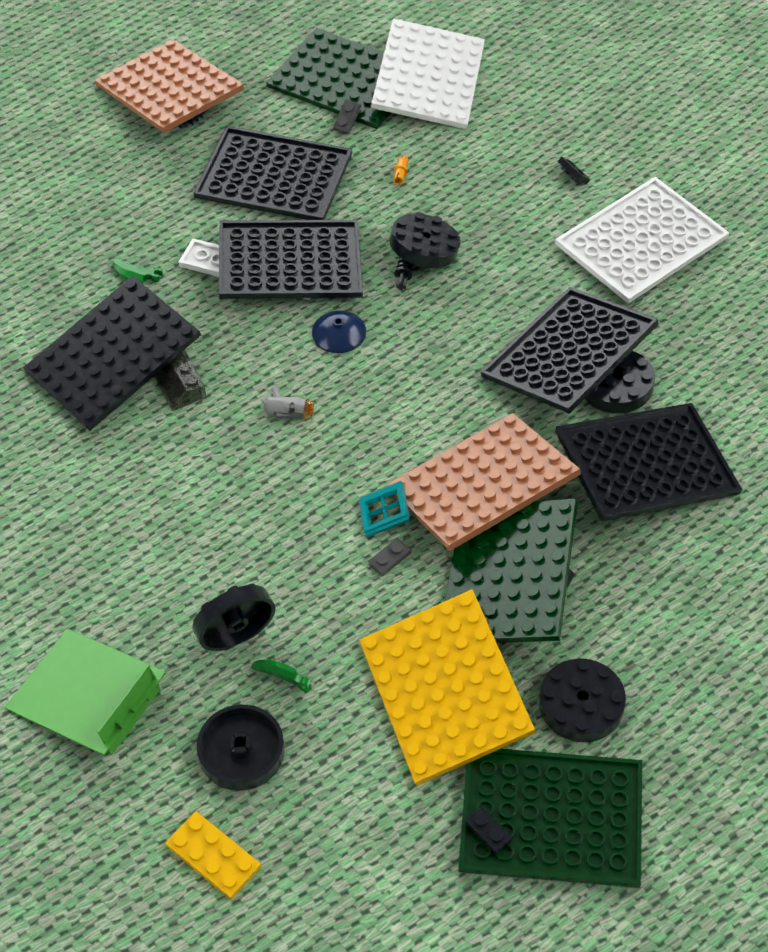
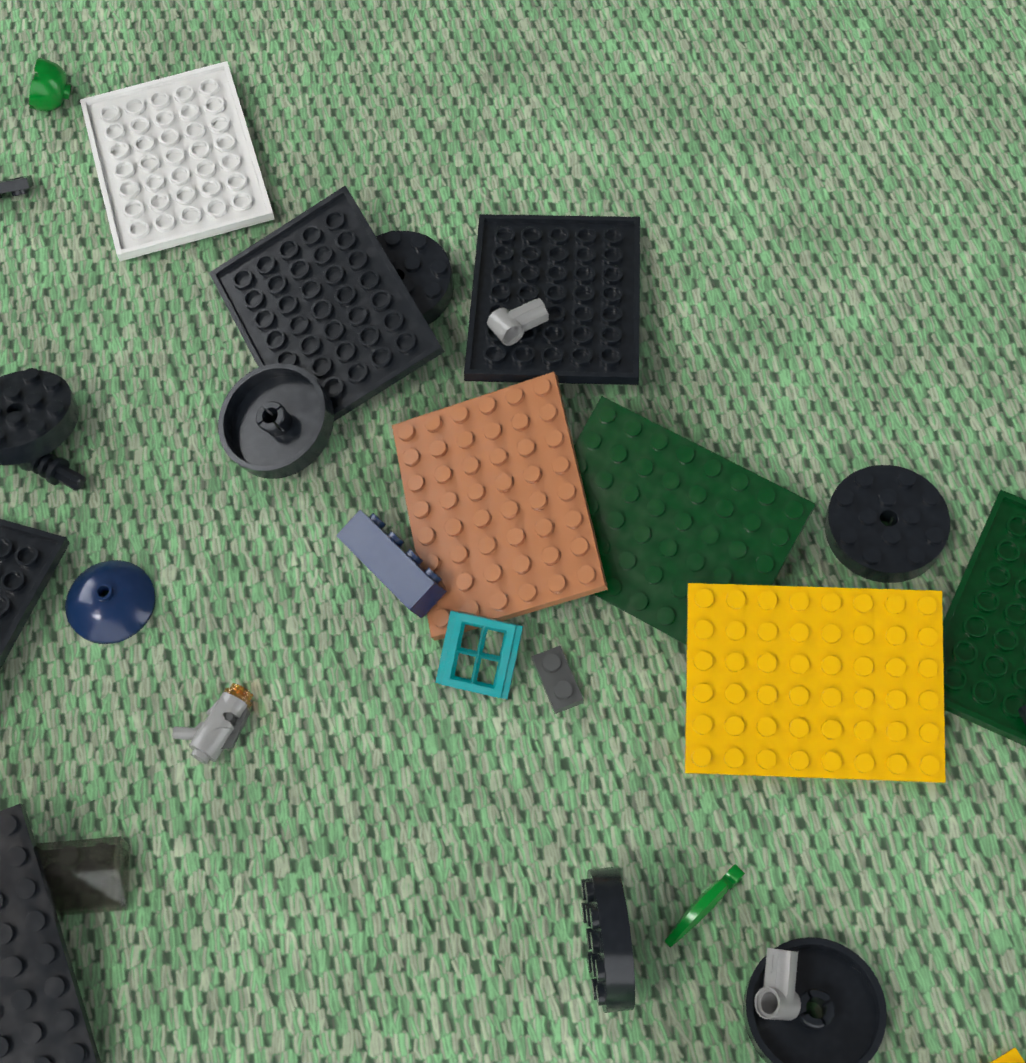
camera: 65 degrees left, 10 degrees up
(238, 718) = (778, 996): none -> light grey piece
(419, 444) = (391, 563): none -> brick
(483, 355) = (280, 395): none -> black piece
(603, 436) = (512, 324): none -> light grey piece
(653, 158) = (48, 86): none -> green cylinder

